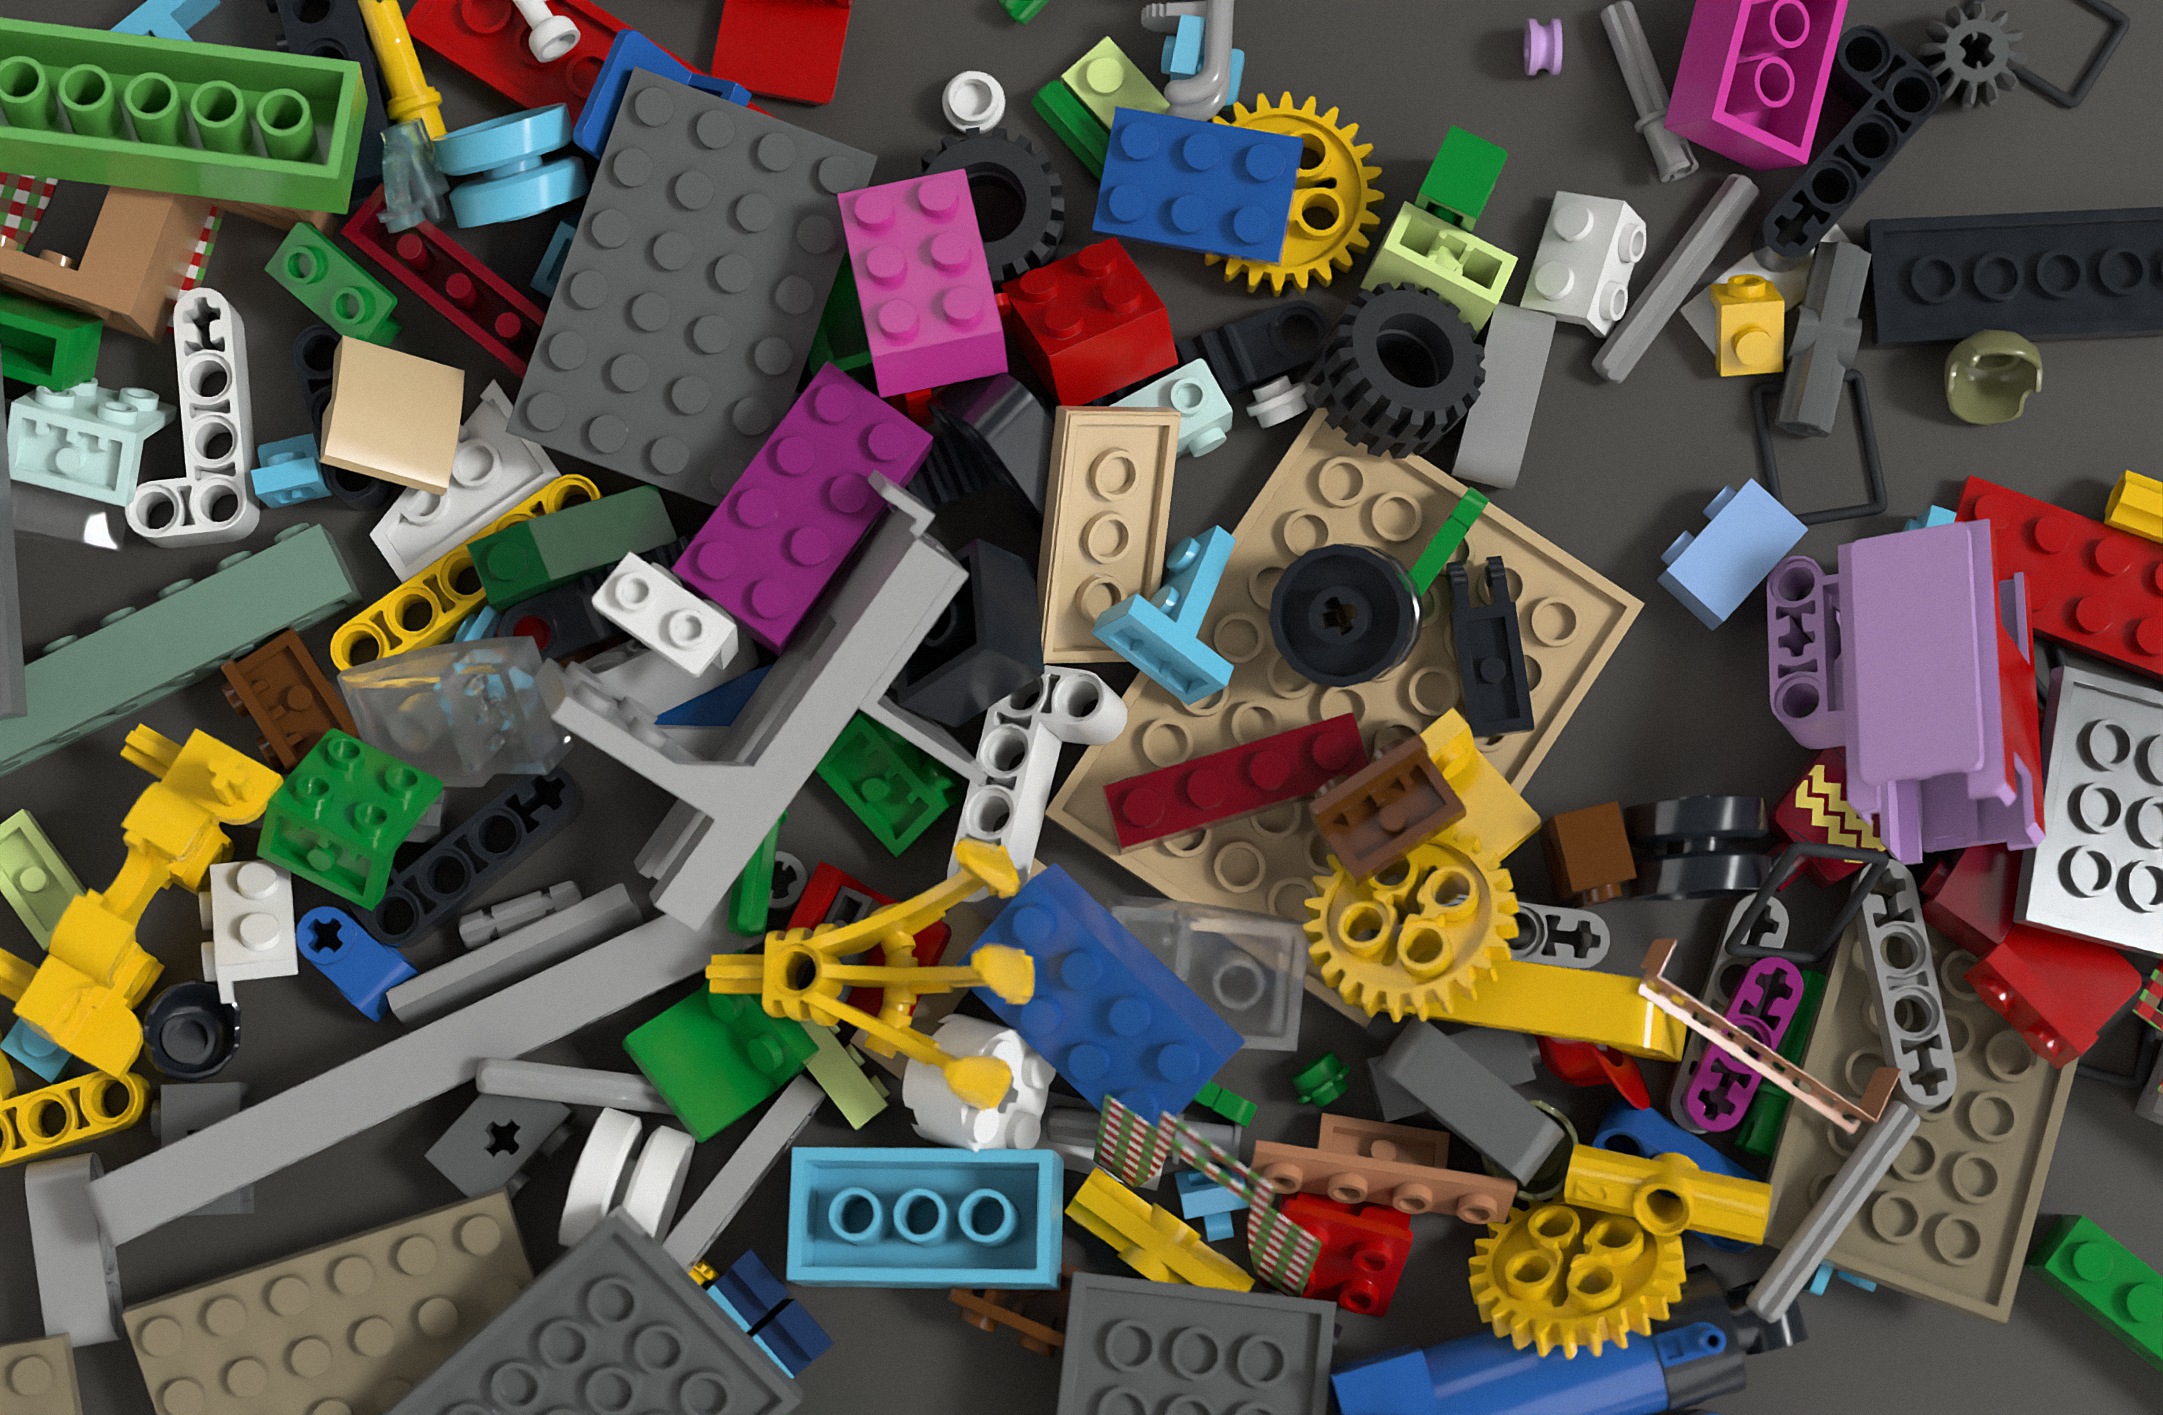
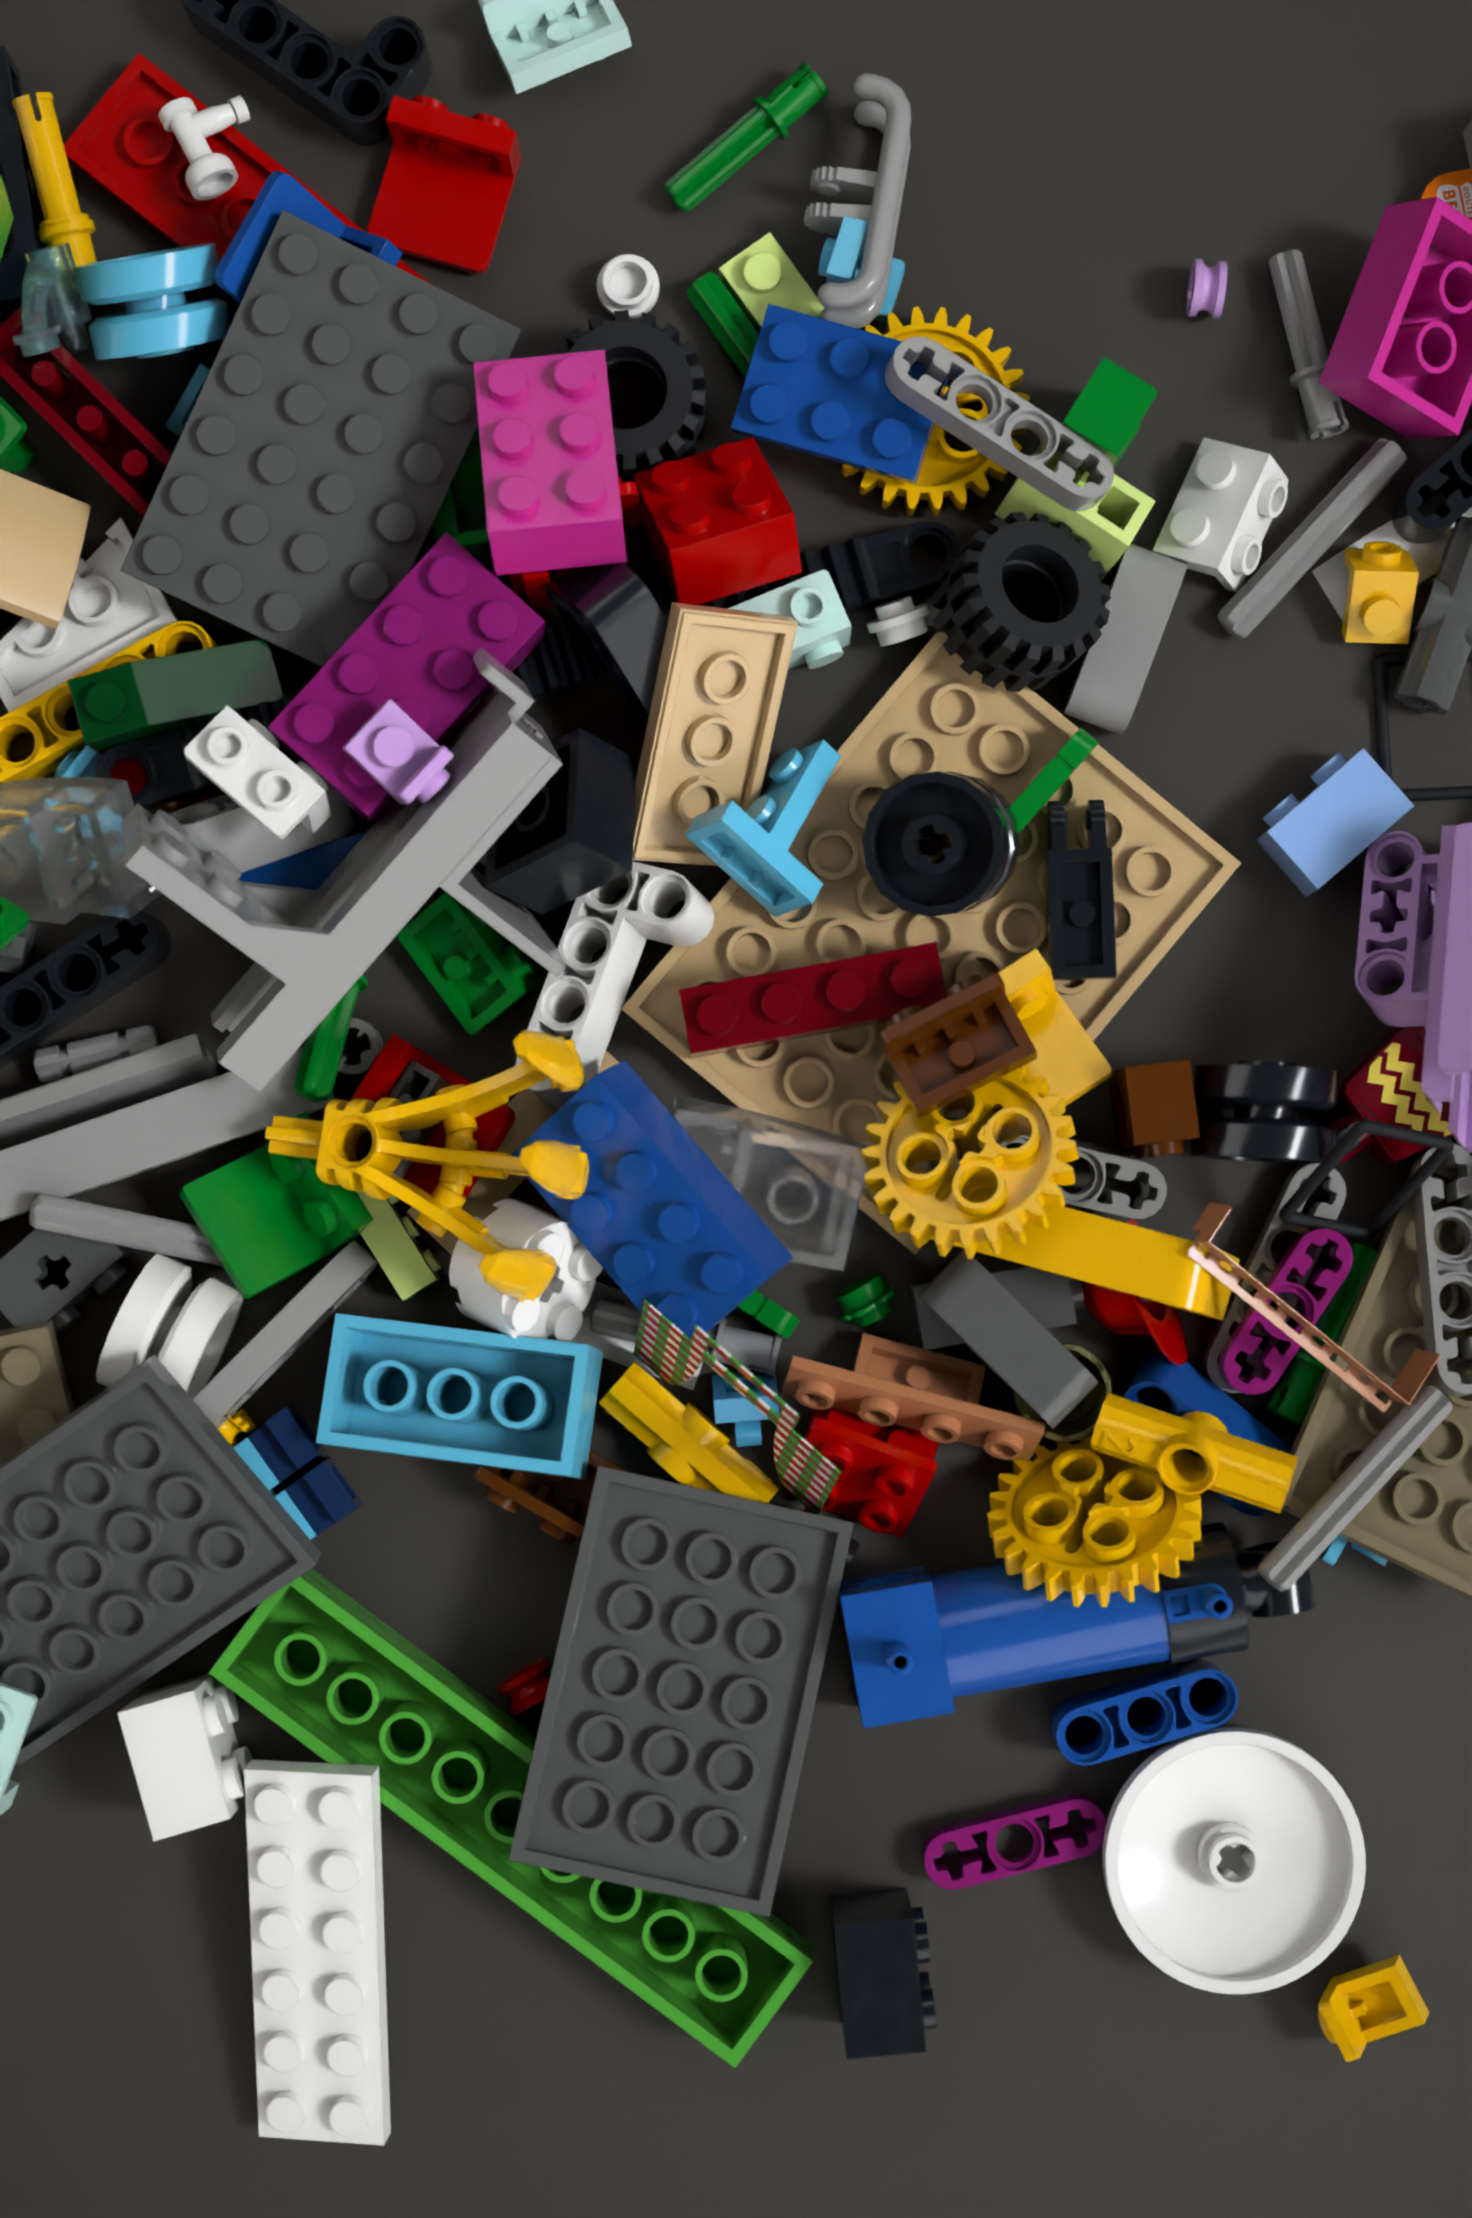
camera: 10 degrees right, 5 degrees up
(807, 582) = (399, 755): none -> lavender bracket
(1361, 190) = (993, 434): none -> light grey beam

